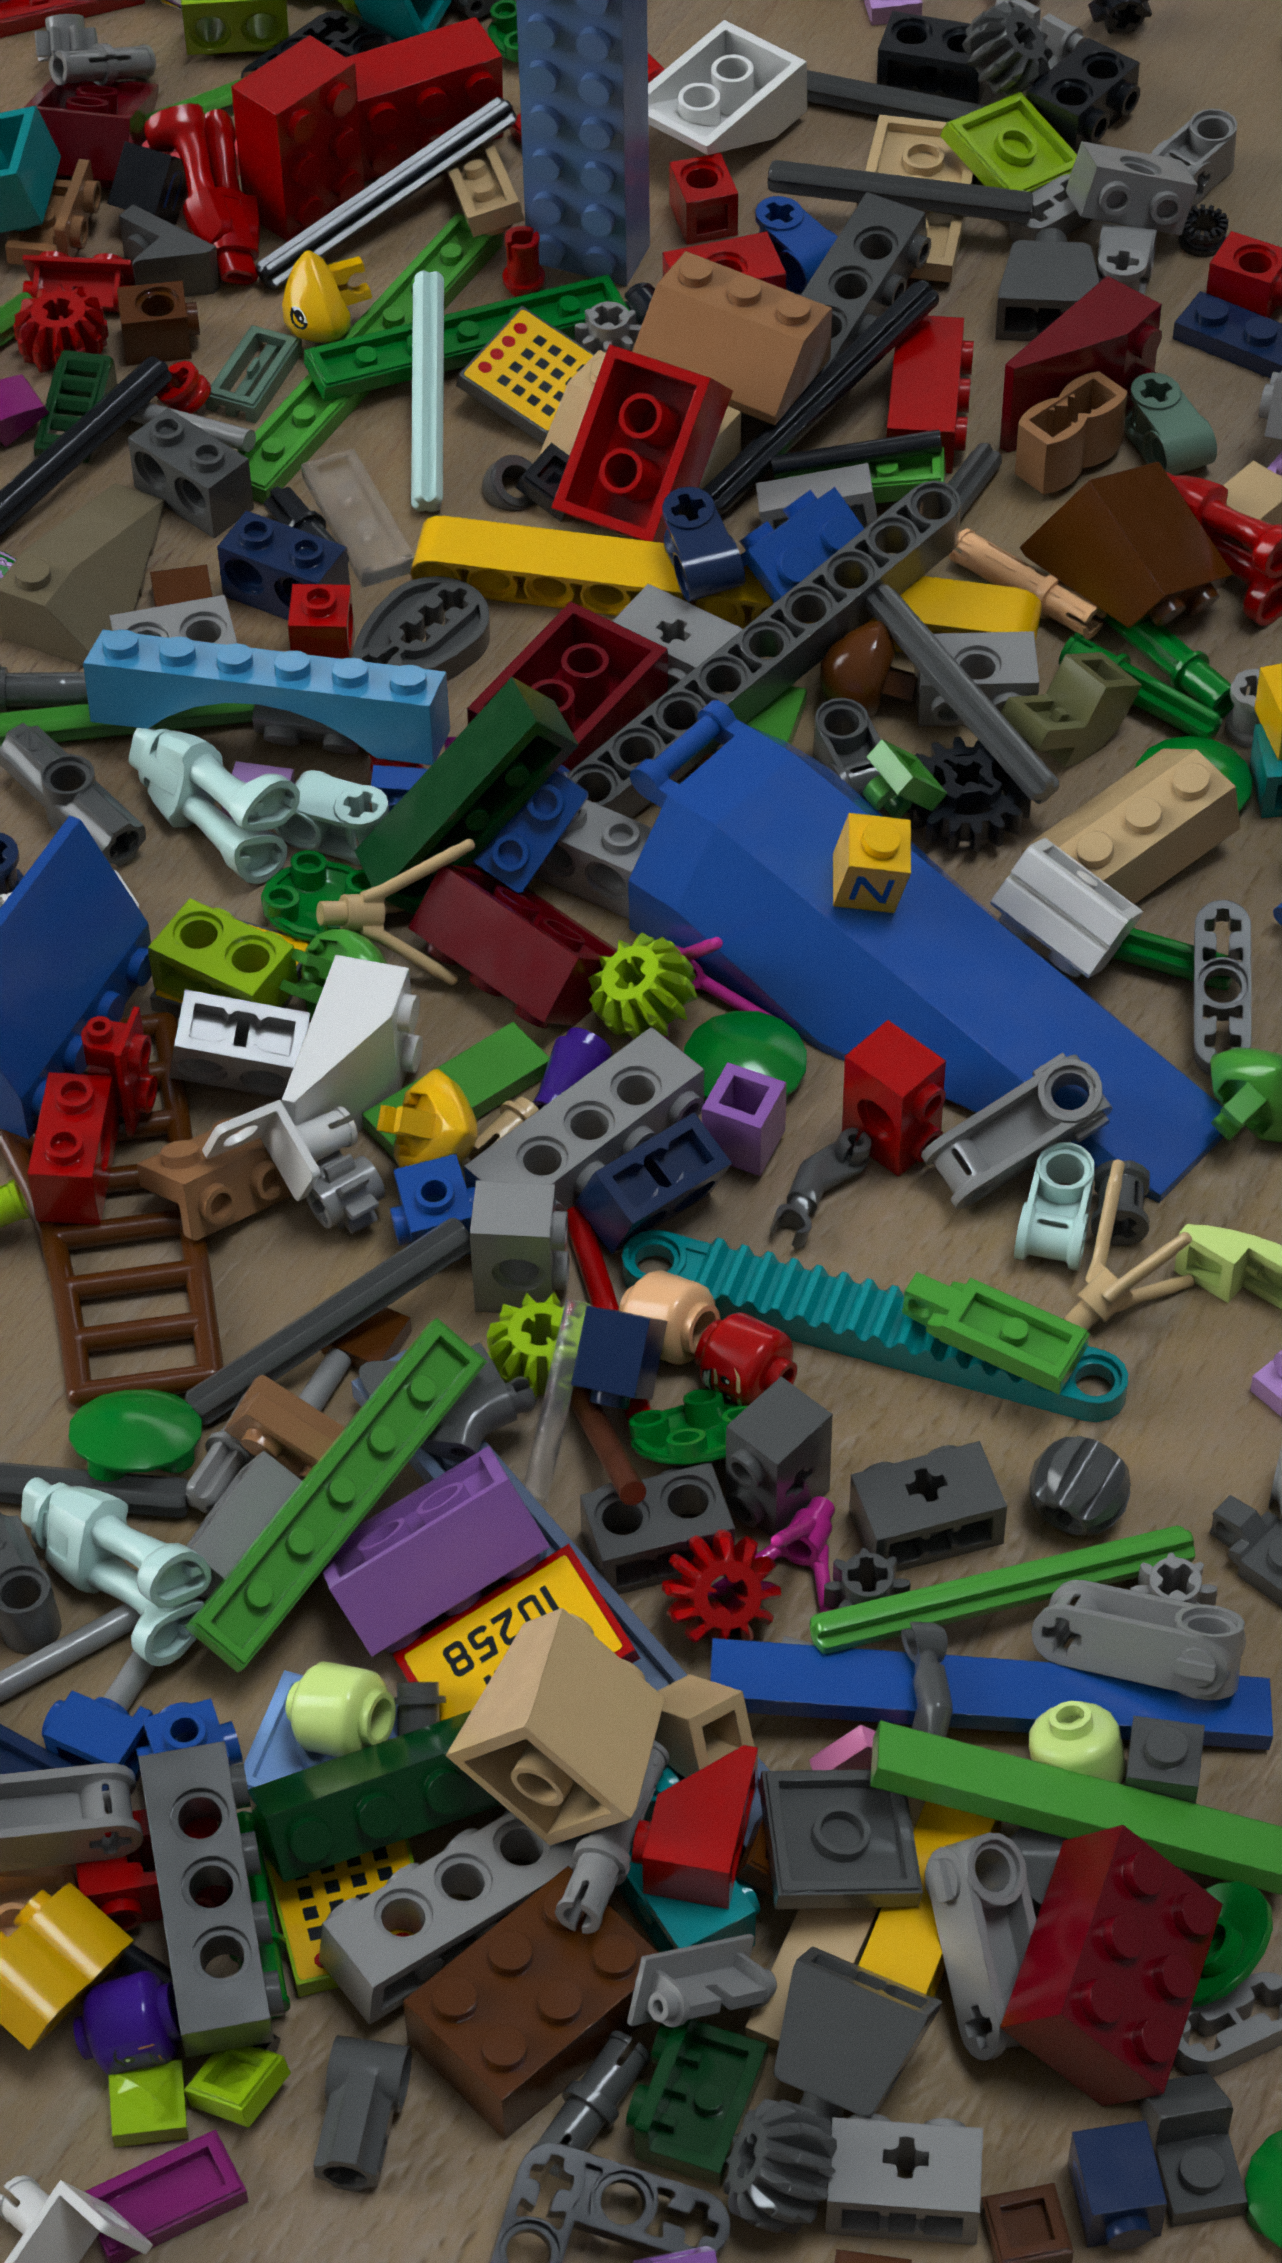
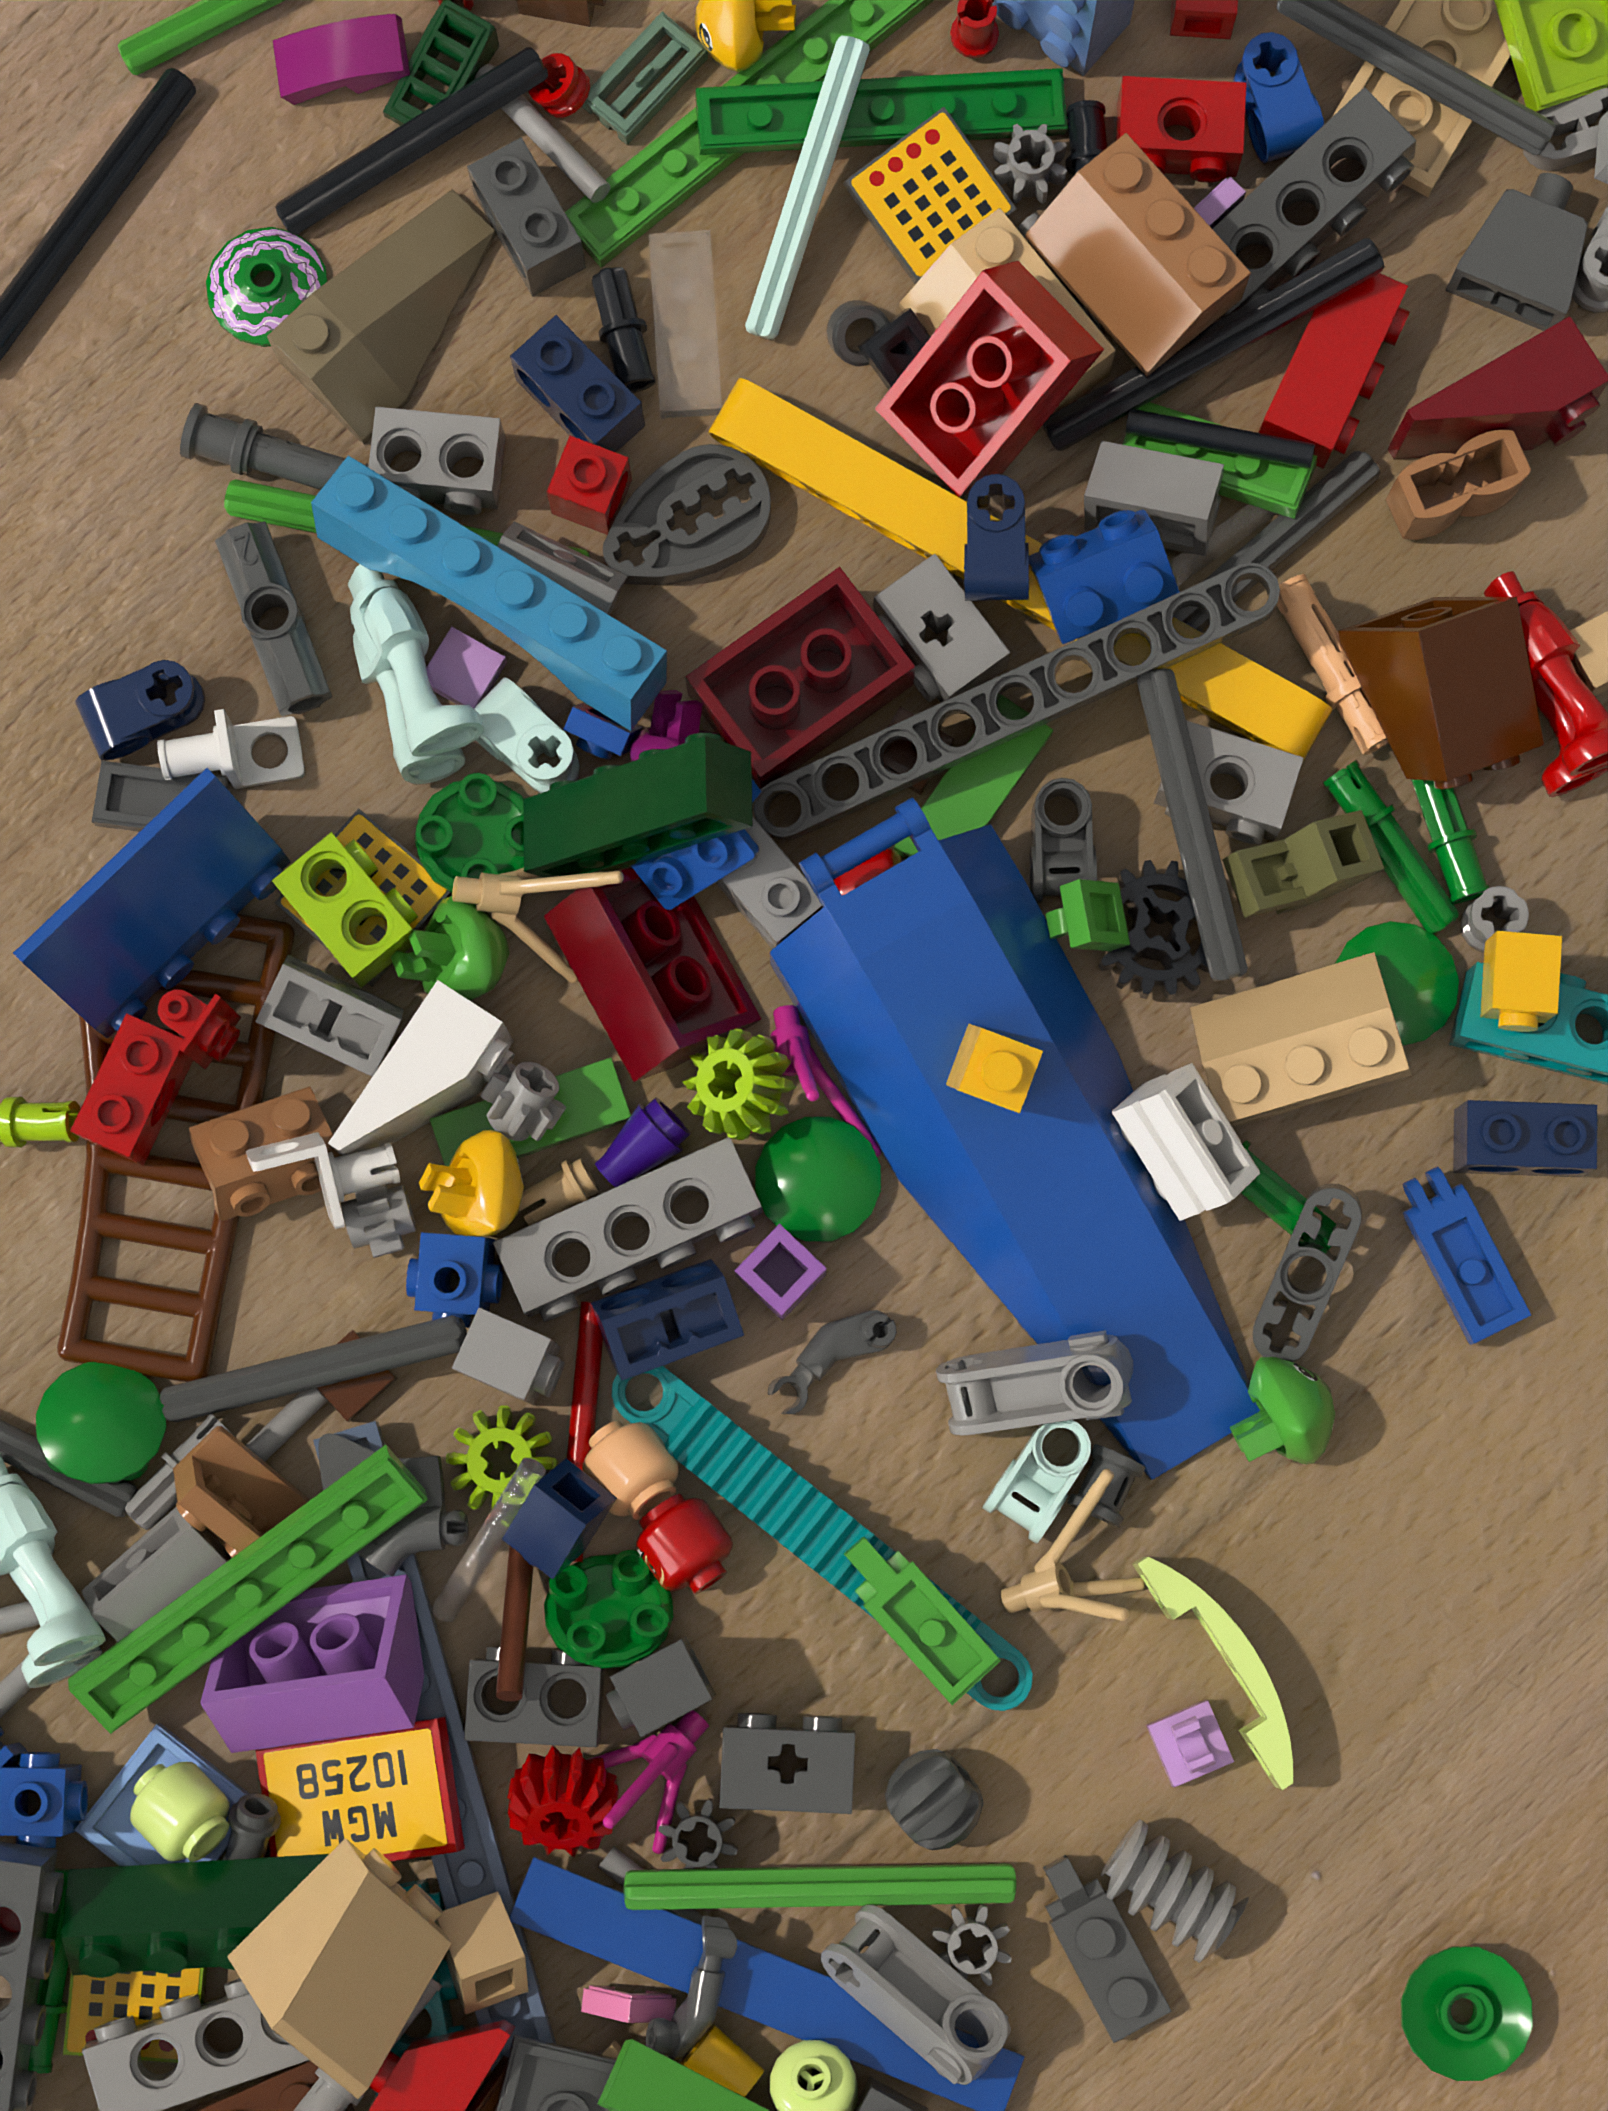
camera: 20 degrees right, 30 degrees up
(180, 585) = (471, 374): reddish brown tile -> none
(450, 1049) = (523, 1101): none -> light grey gear
(861, 668) = (1107, 742): reddish brown piece -> none
(894, 1096) = (930, 1310): red brick -> none
(1168, 426) = (1566, 515): sand green piece -> none

